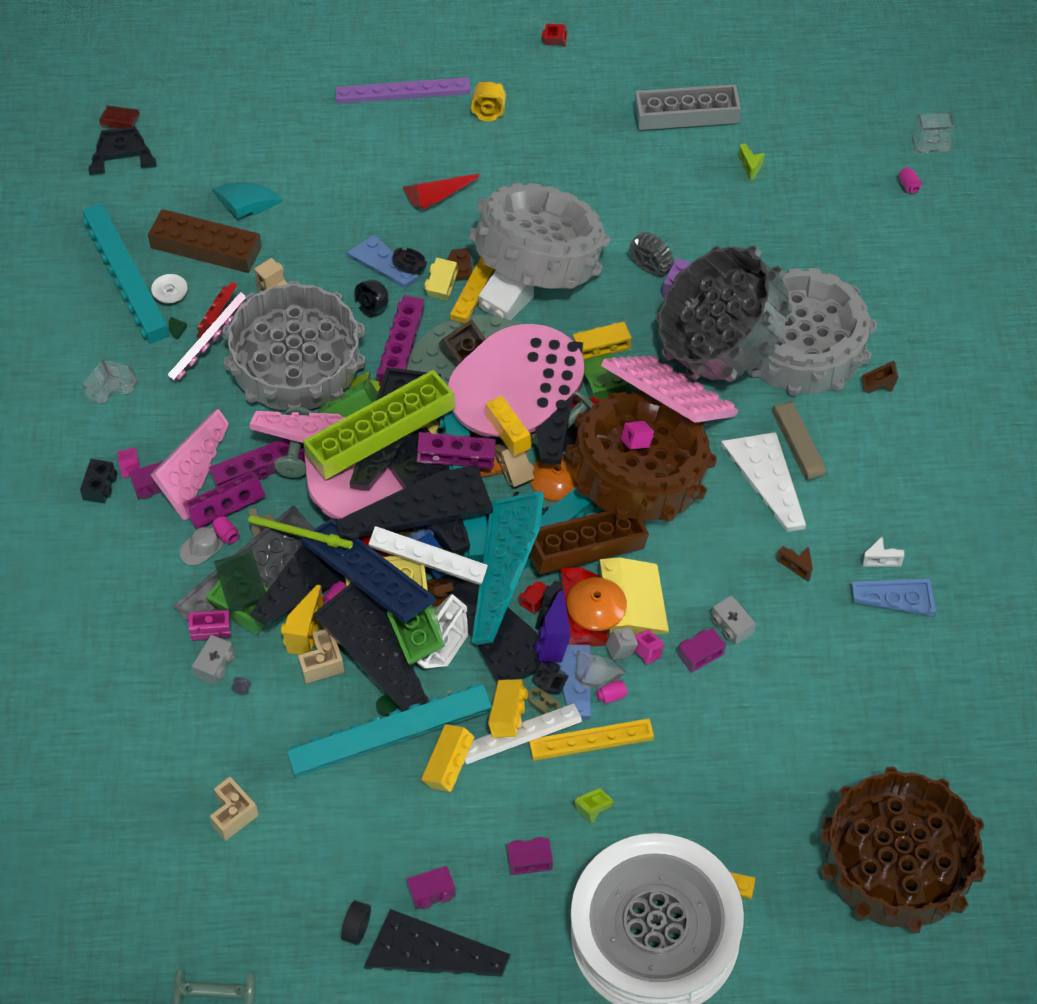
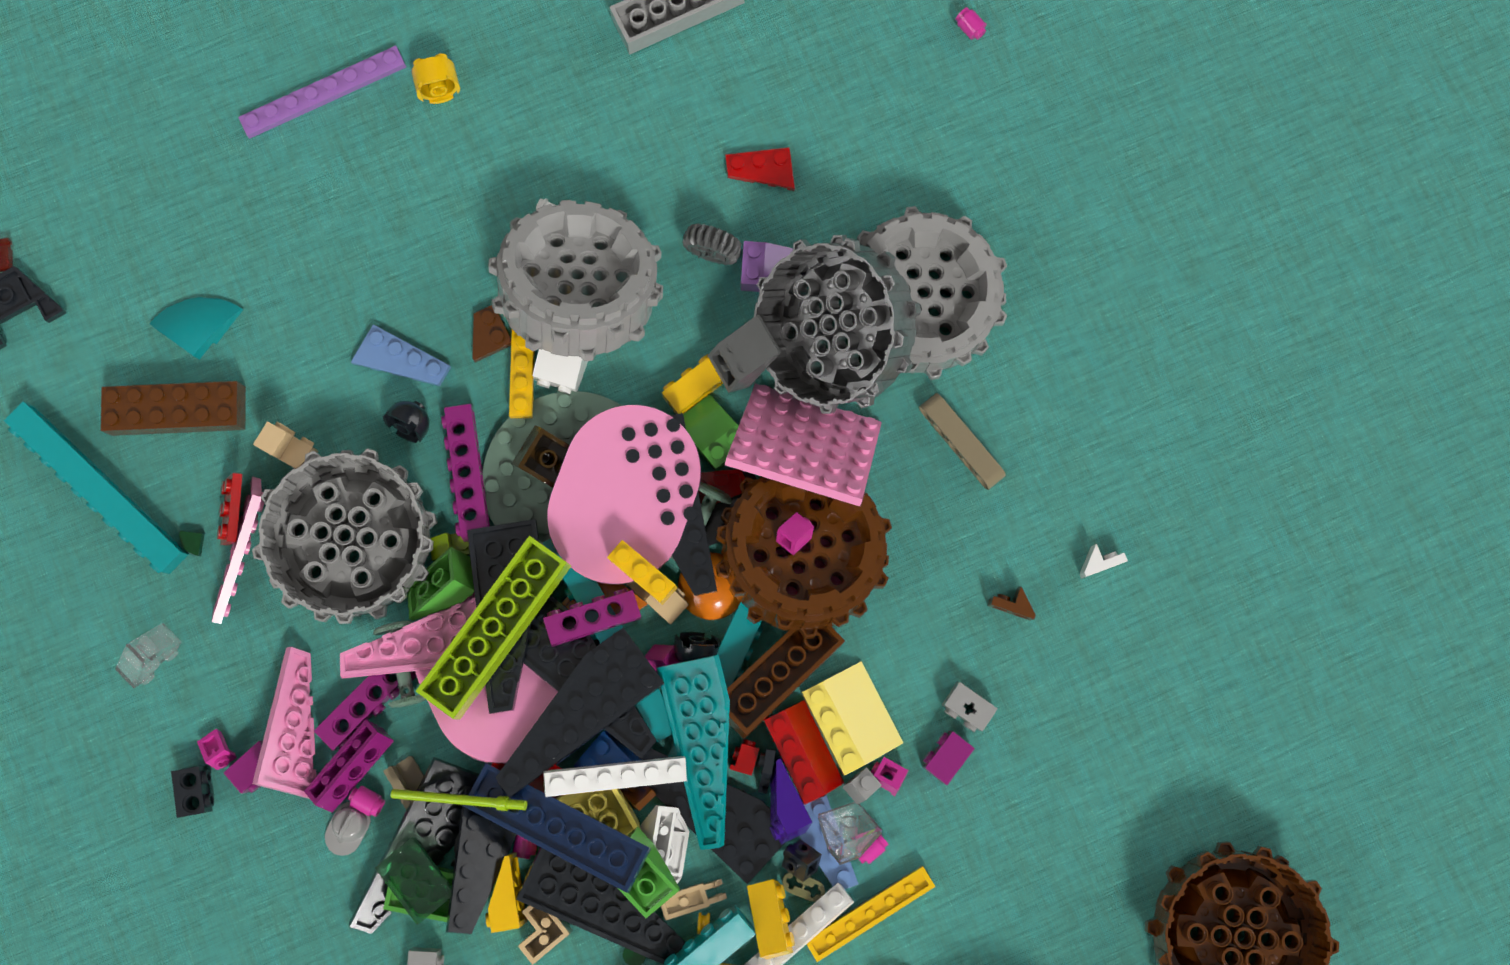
camera: 25 degrees left, 25 degrees up
(169, 288) = (151, 488): white dish -> none
(209, 623) = (400, 937): dark pink brick -> none
(409, 260) = (430, 350): black tile -> none
(432, 192) = (419, 238): red wedge -> none
(441, 279) = (479, 365): light yellow brick -> none
(447, 680) = (691, 899): none -> tan hinge
(593, 612) = (804, 750): orange dish -> none
(645, 321) = (744, 354): none -> dark grey slope
(716, 225) = (762, 166): none -> red wing
(750, 162) = (777, 61): lime slope -> none
(767, 472) = (937, 491): white wing -> none
(883, 376) = (1026, 324): reddish brown slope -> none
(900, 595) = (1135, 605): medium blue wing -> none

